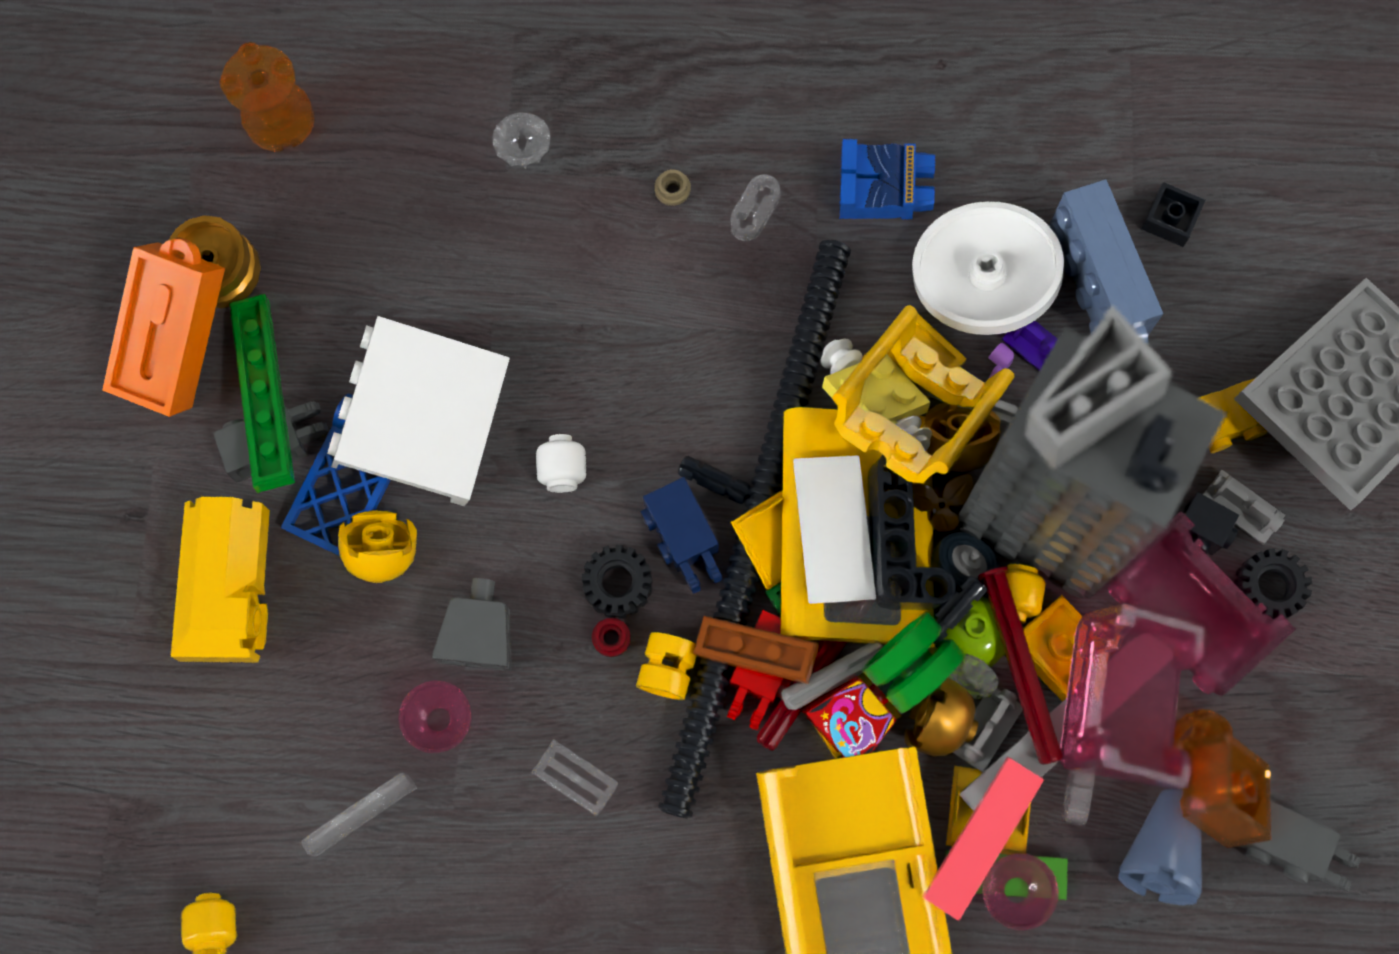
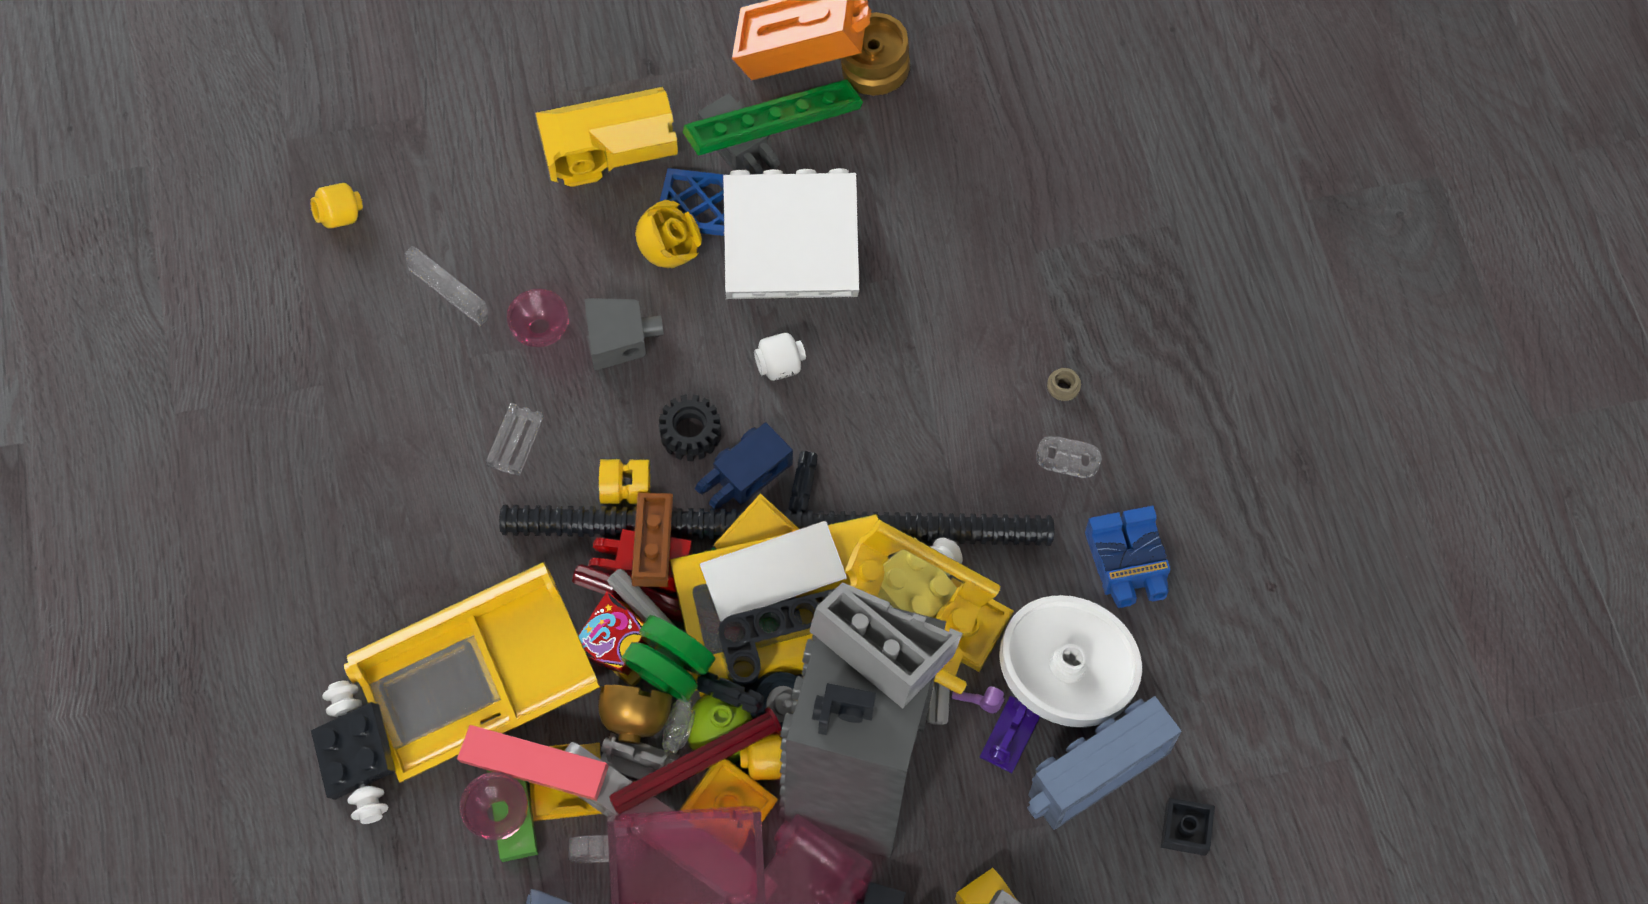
camera: 70 degrees right, 10 degrees down
(263, 88) = (1027, 61): clear orange piece -> none
(508, 131) = (1071, 243): clear gear -> none
(611, 625) = (641, 427): dark red plate -> none

